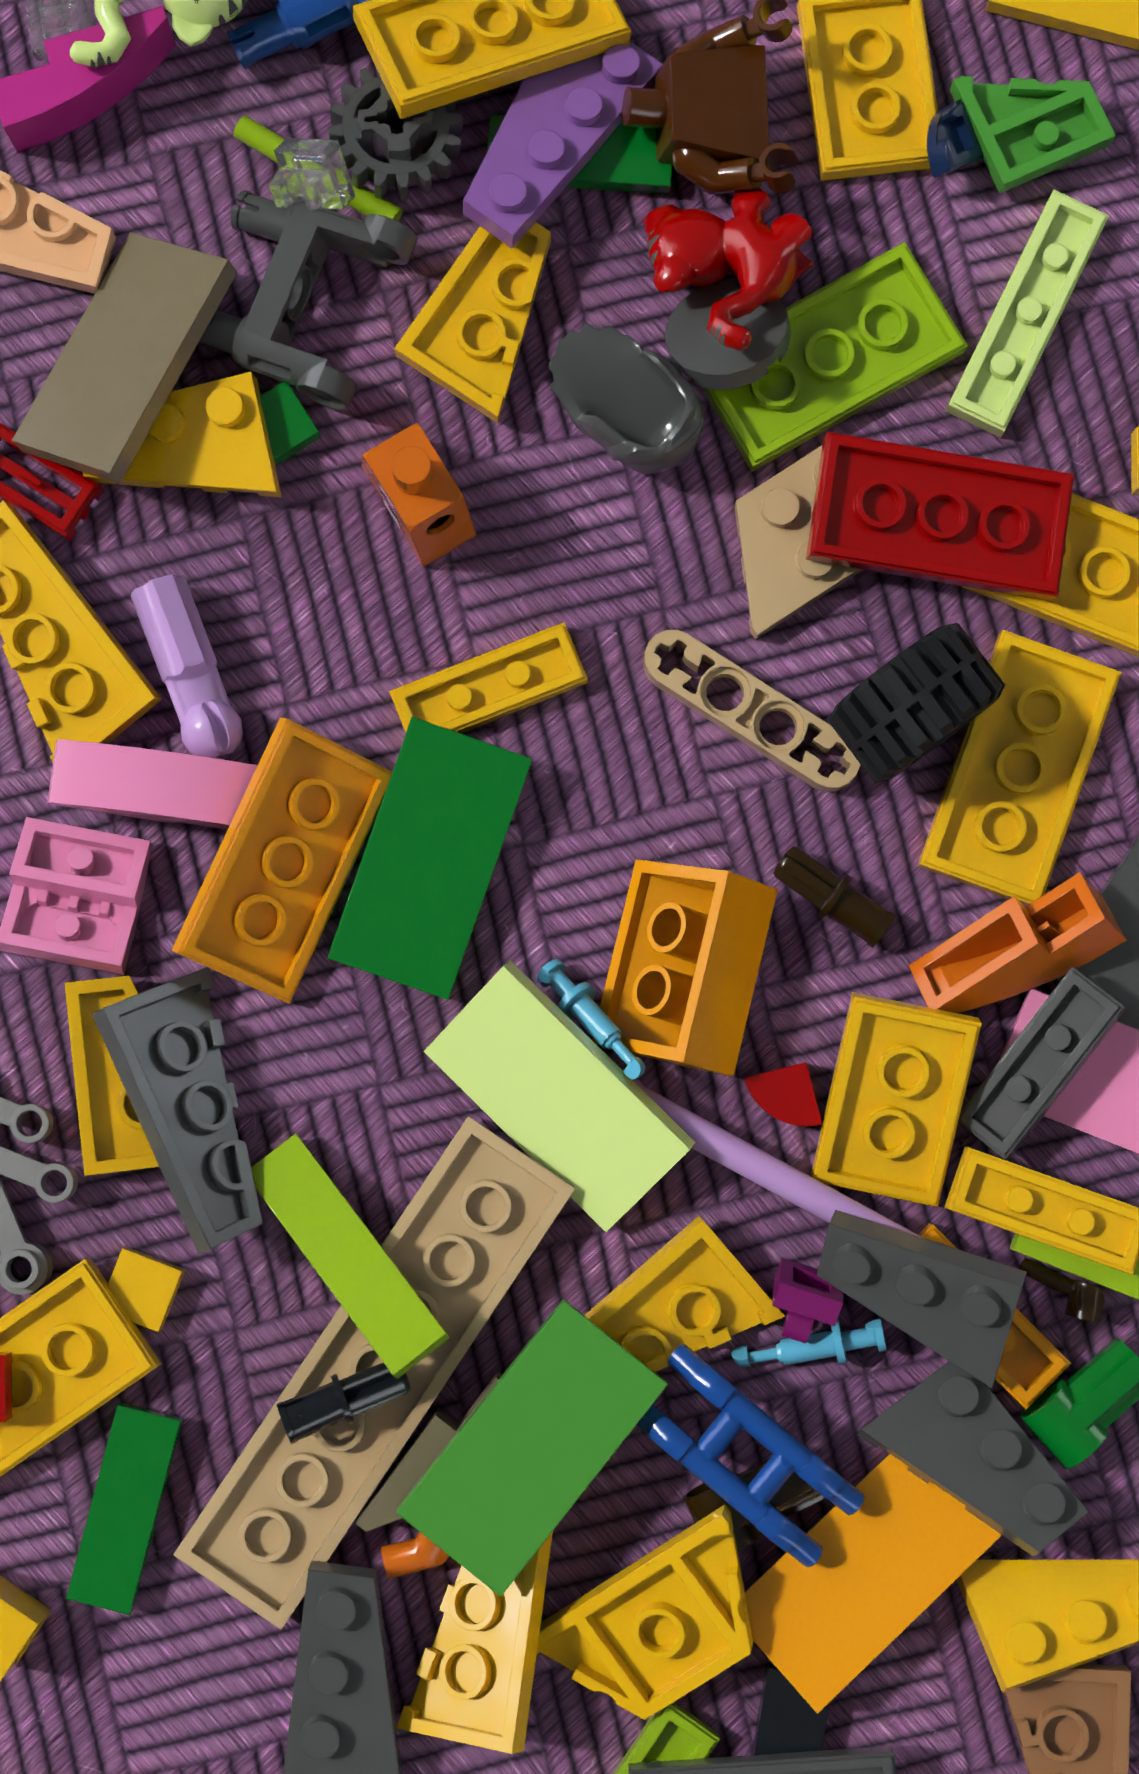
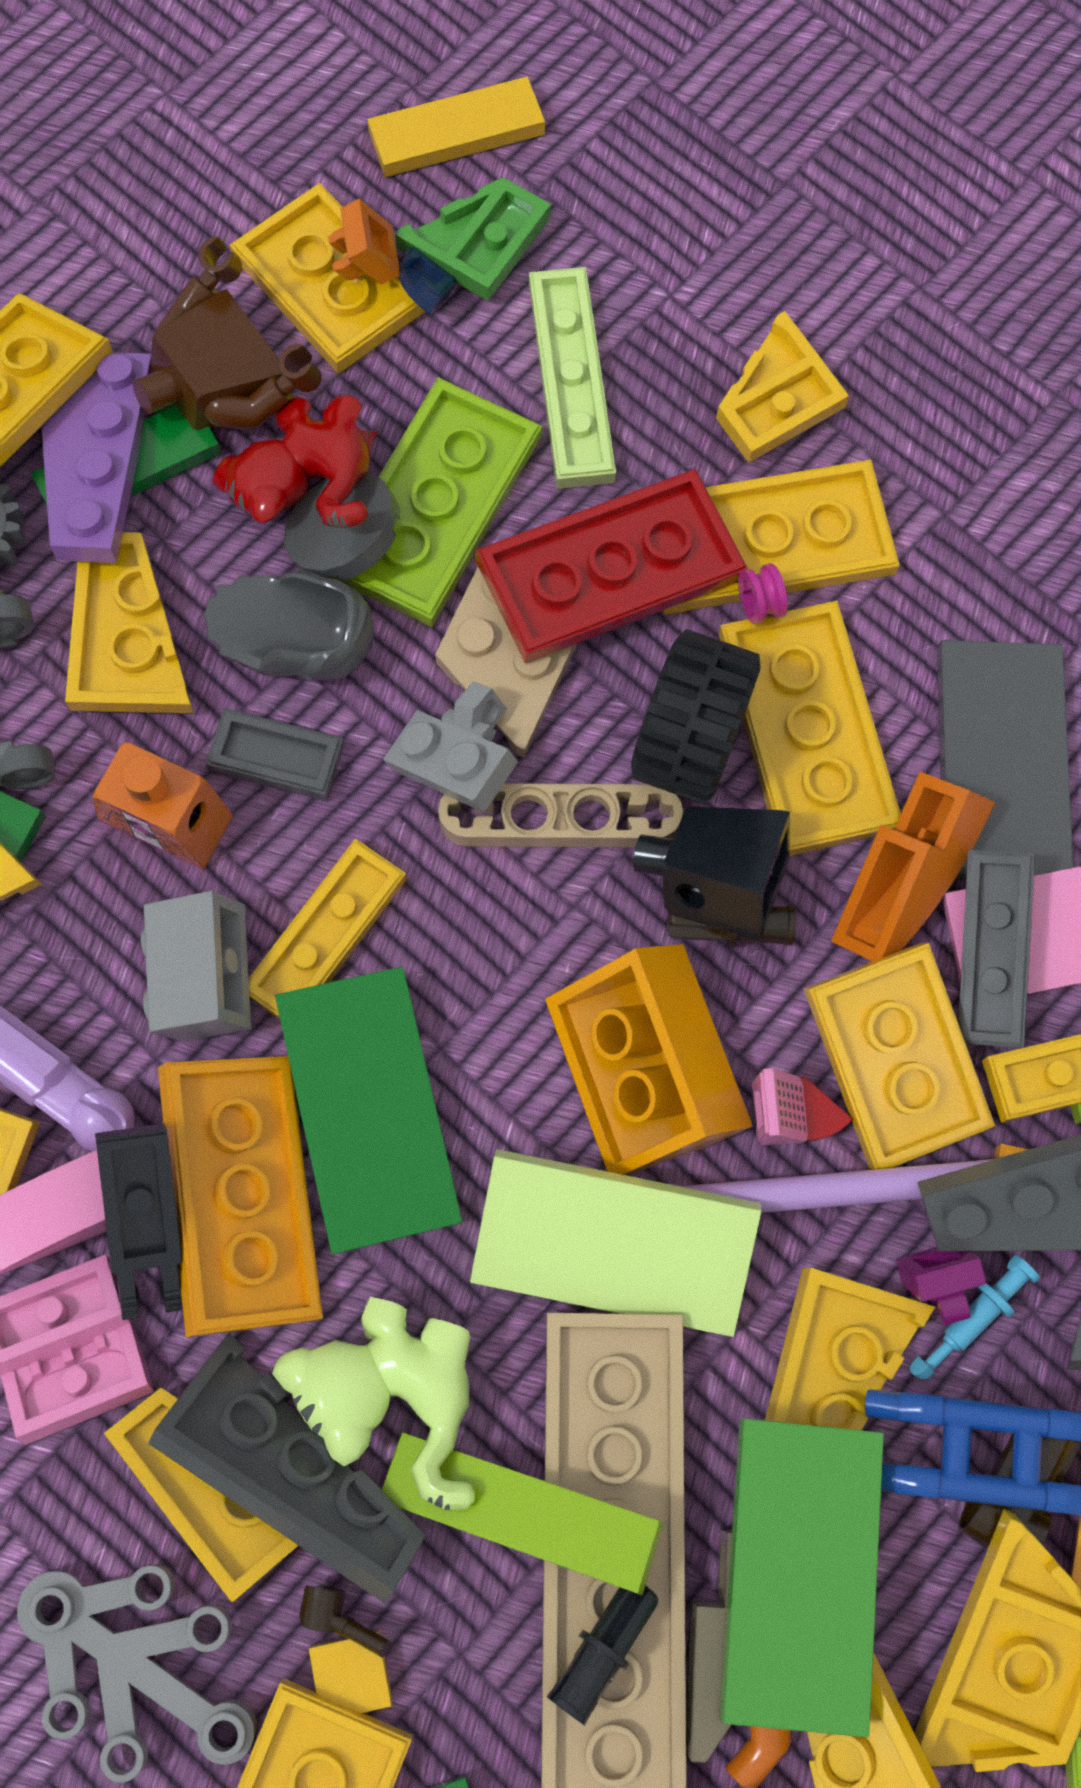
camera: 35 degrees left, 10 degrees down
(149, 1228) = (322, 1612): none -> dark brown hand
(194, 827) = (140, 1211): none -> black hinge
(274, 1072) = (349, 1386): none -> yellowish green animal
(363, 651) = (196, 967): none -> light grey brick
(544, 504) = (275, 754): none -> dark grey tile
(579, 1003) = (580, 1151): medium azure piece -> none
(695, 599) = (457, 751): none -> light grey hinge
(766, 1077) = (779, 1108): none -> bright pink slope
(853, 845) = (721, 866): none -> black torso
(920, 76) = (368, 244): none -> orange tile
(1055, 626) = (762, 593): none -> dark pink bush

